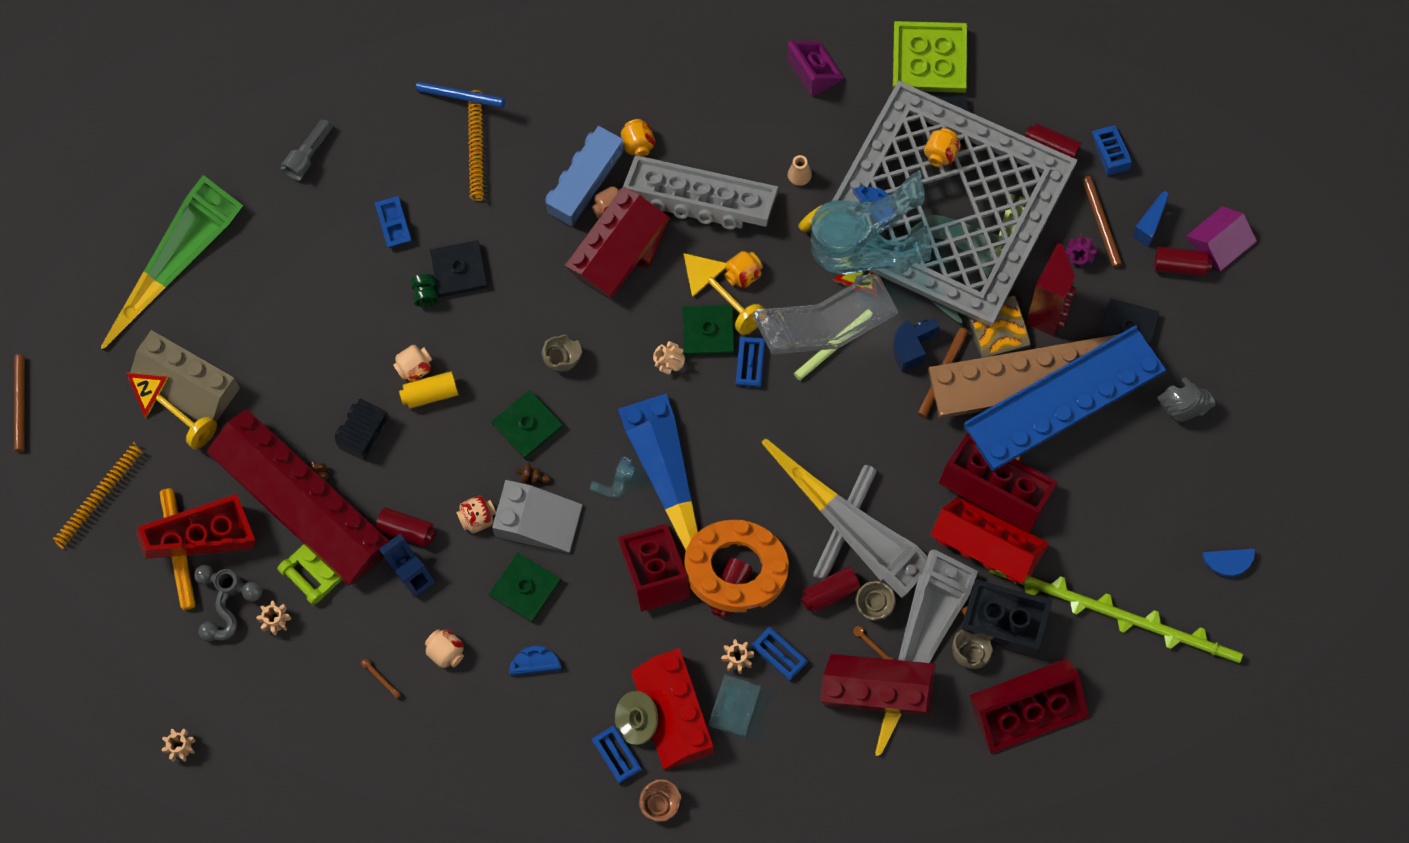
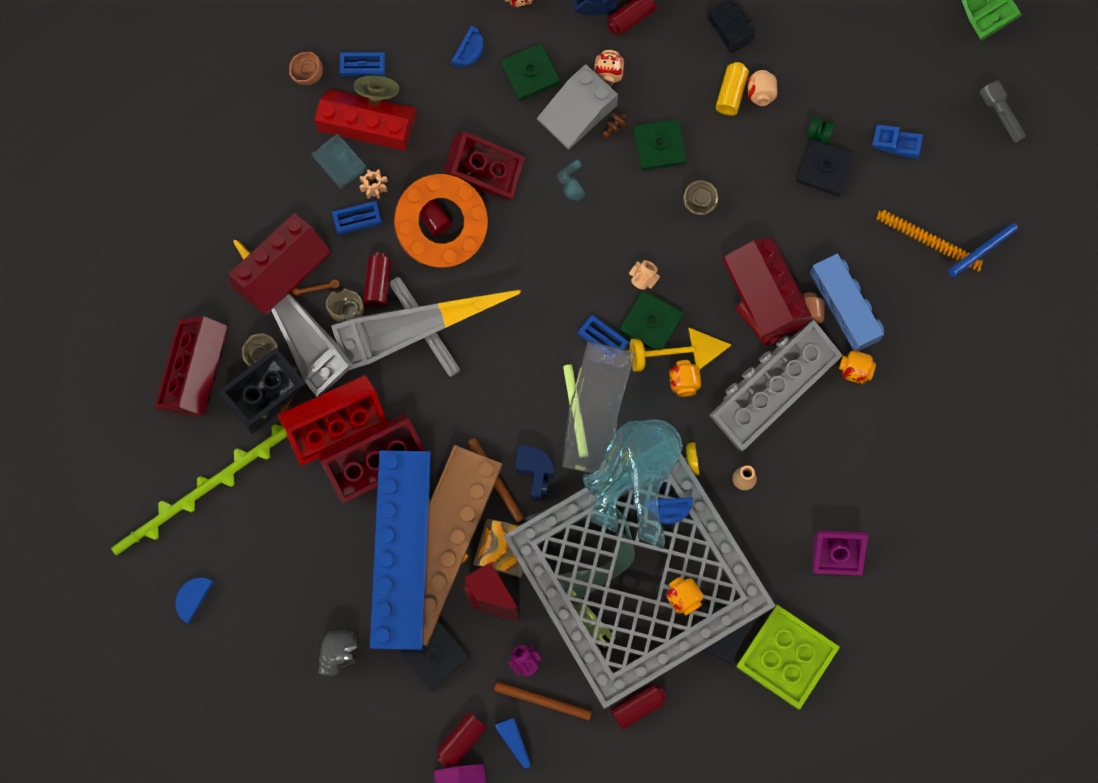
camera: 120 degrees right, 5 degrees up
(656, 442) = (581, 227): blue plate -> none
(1117, 166) = (596, 743): blue slope -> none

